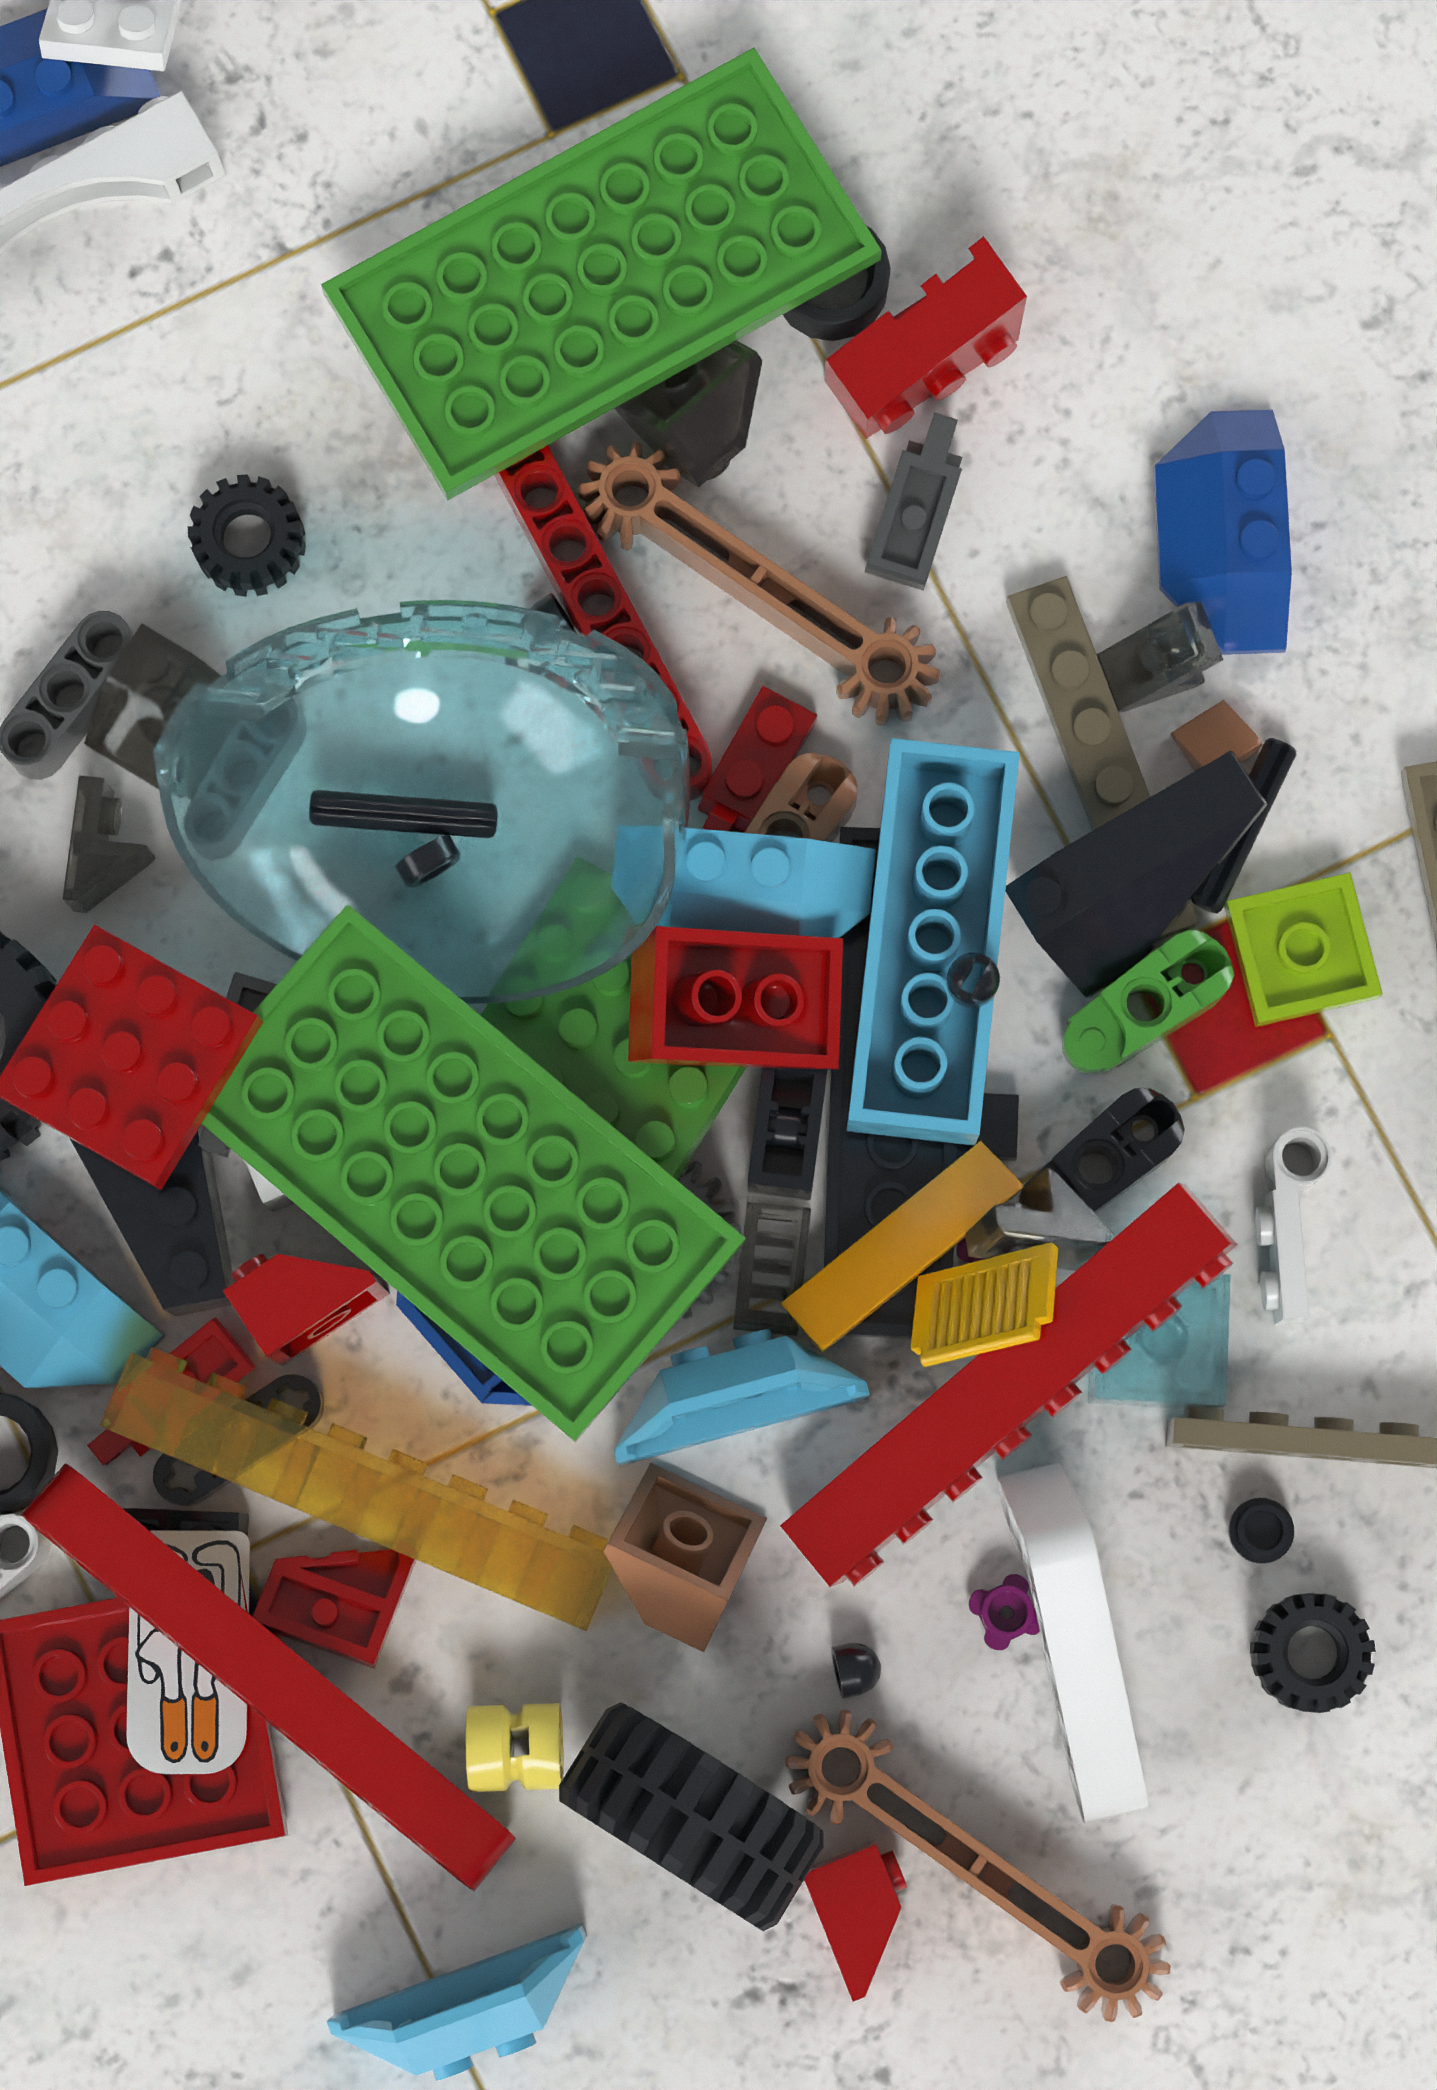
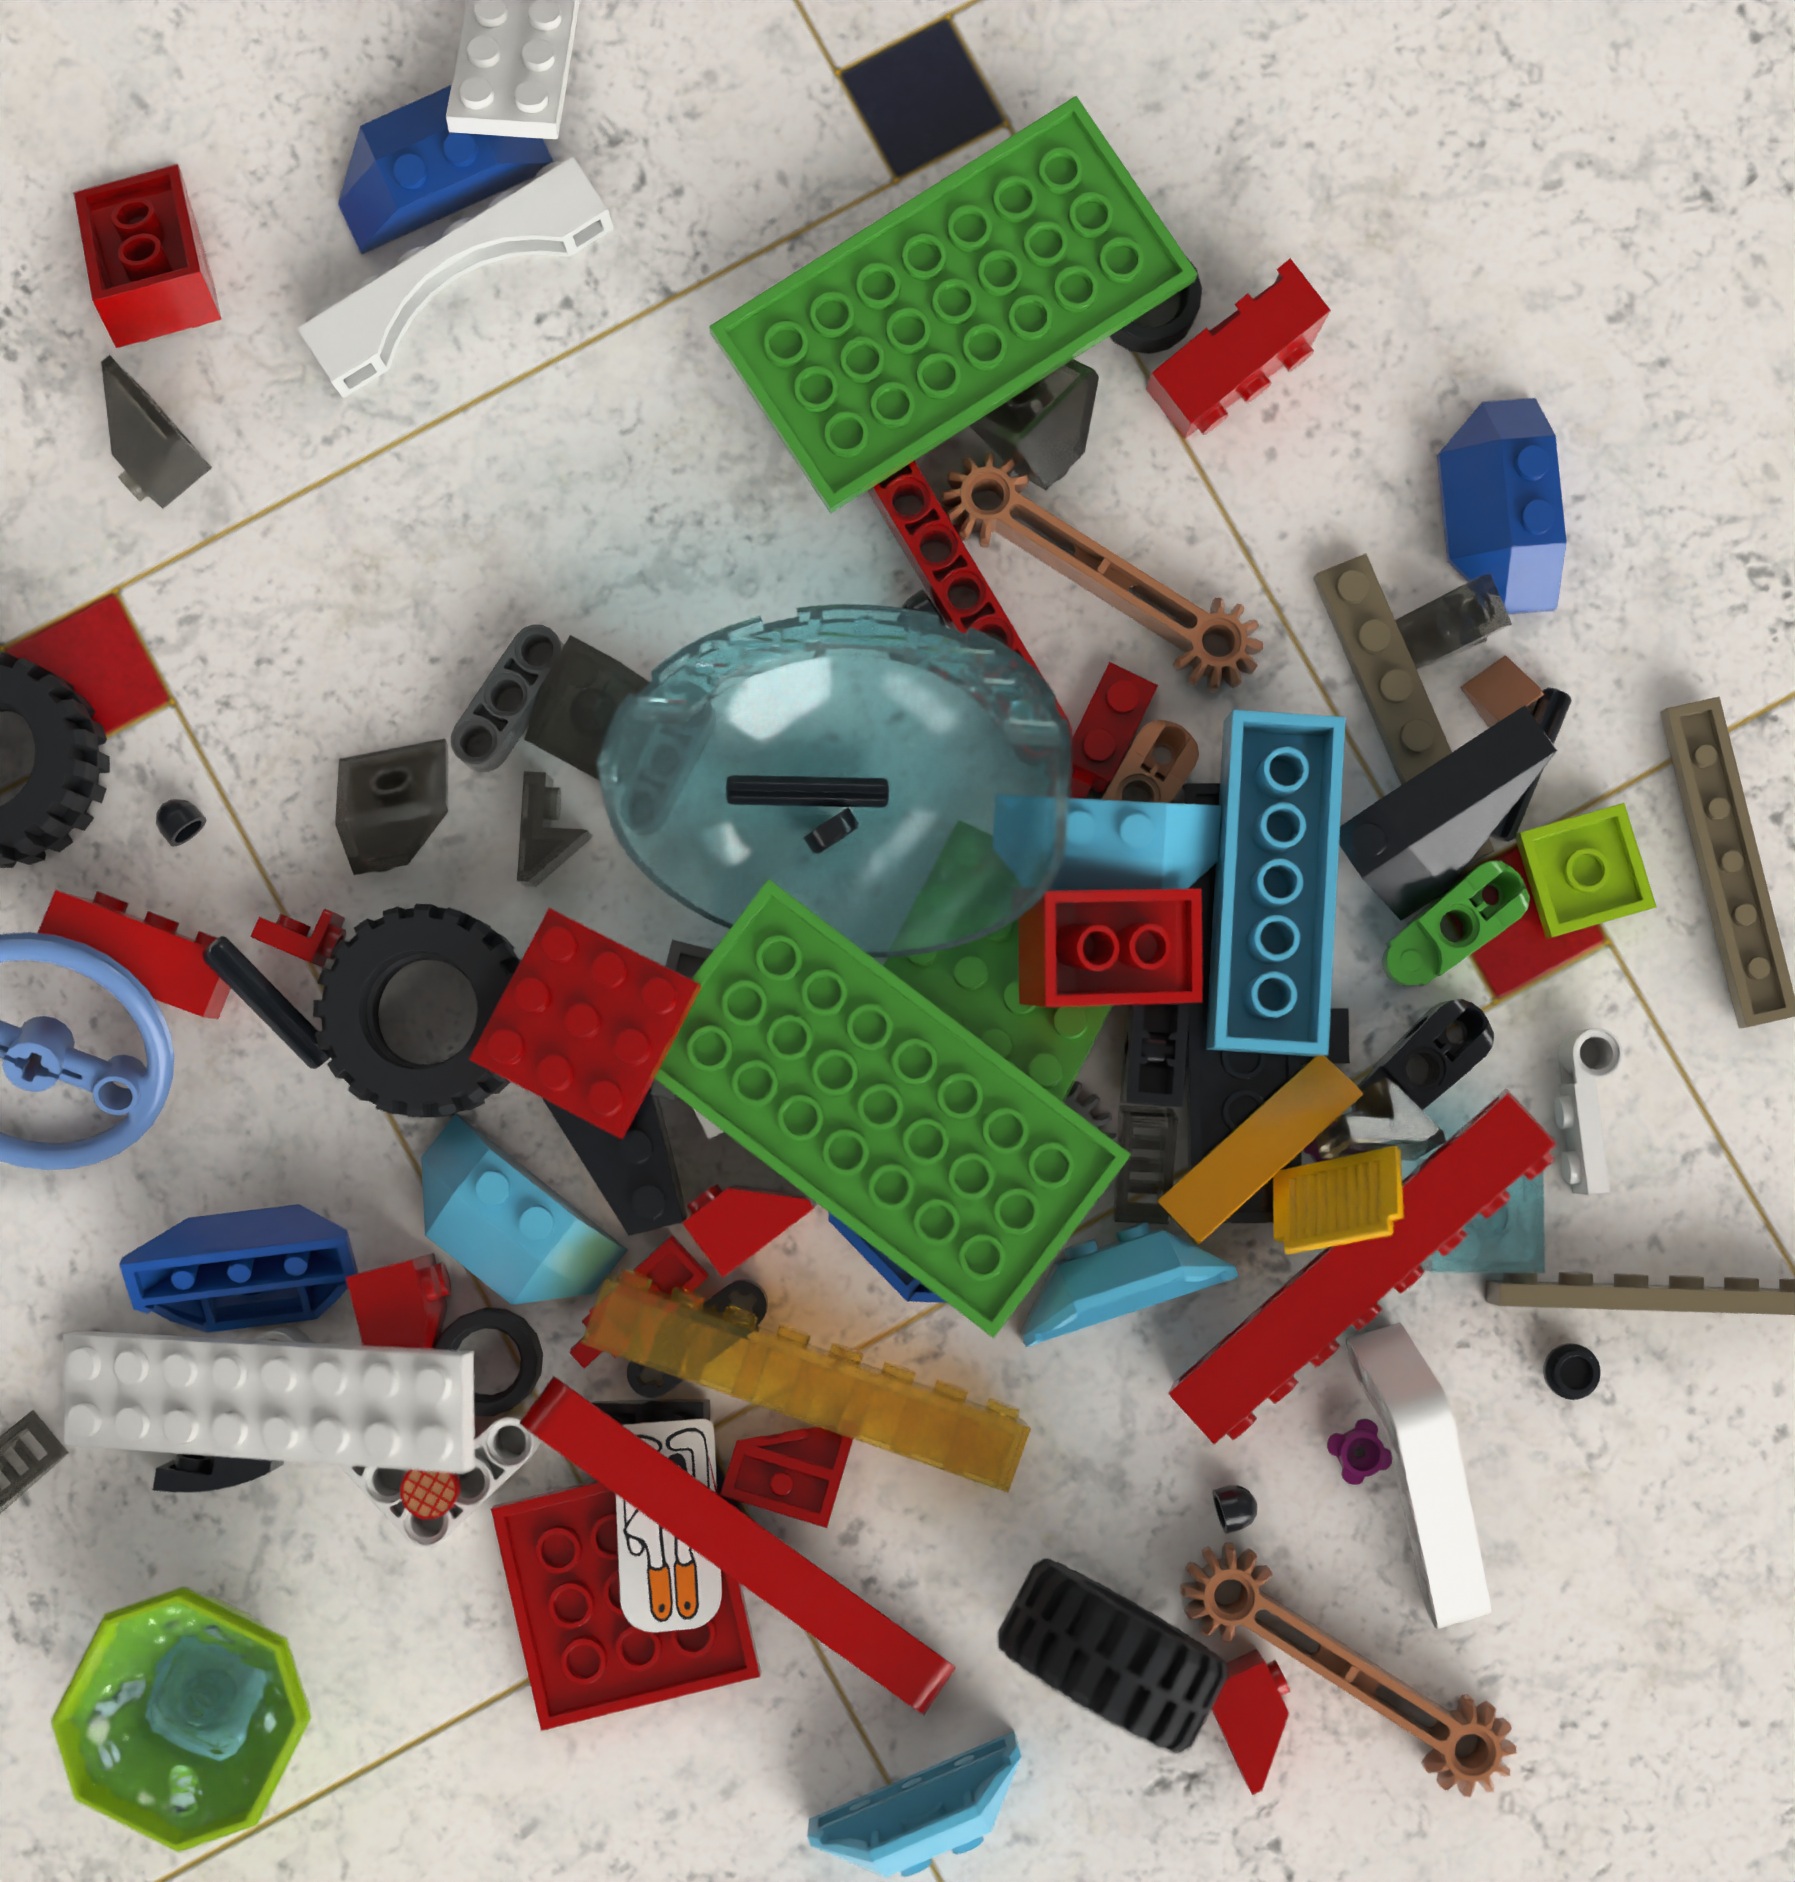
camera: 10 degrees left, 5 degrees up
(246, 499) = (648, 518): black tyre -> none
(491, 1747) = (931, 1591): light yellow wheel -> none
(681, 1554) = (1085, 1419): nougat slope -> none
(917, 508) = (1234, 498): dark grey hinge -> none
(986, 987) = (1307, 913): black hinge -> none
(1352, 1646) = (1654, 1475): black tyre -> none

